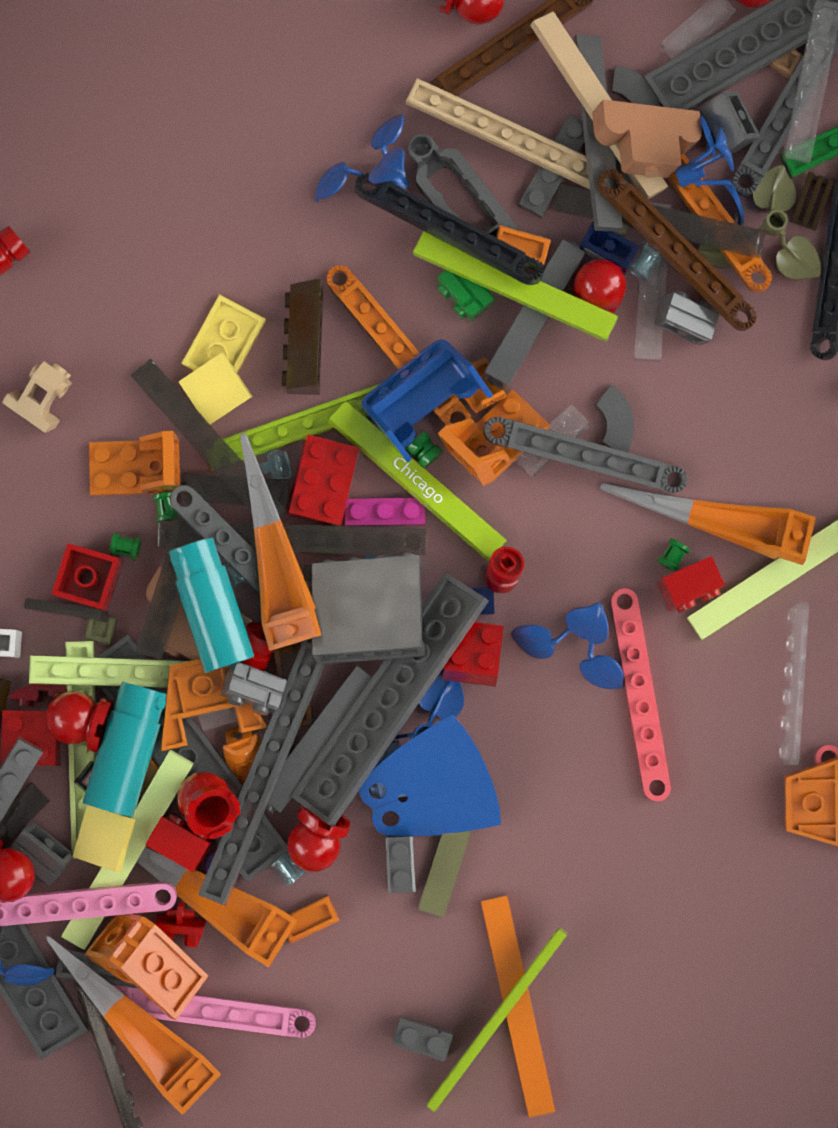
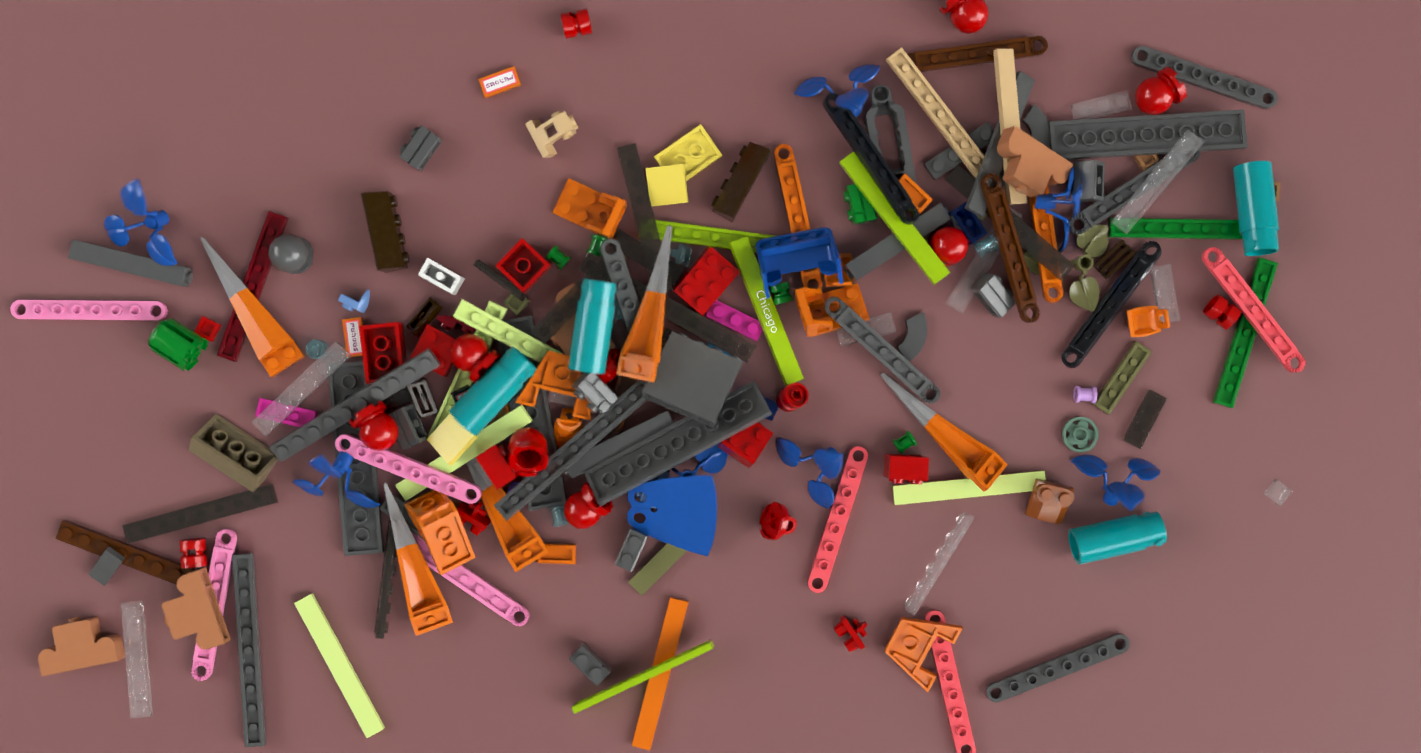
camera: 25 degrees right, 5 degrees up
(26, 791) = (417, 383): none -> tile
(562, 735) = (775, 520): none -> red tile
(742, 836) = (844, 626): none -> red hips

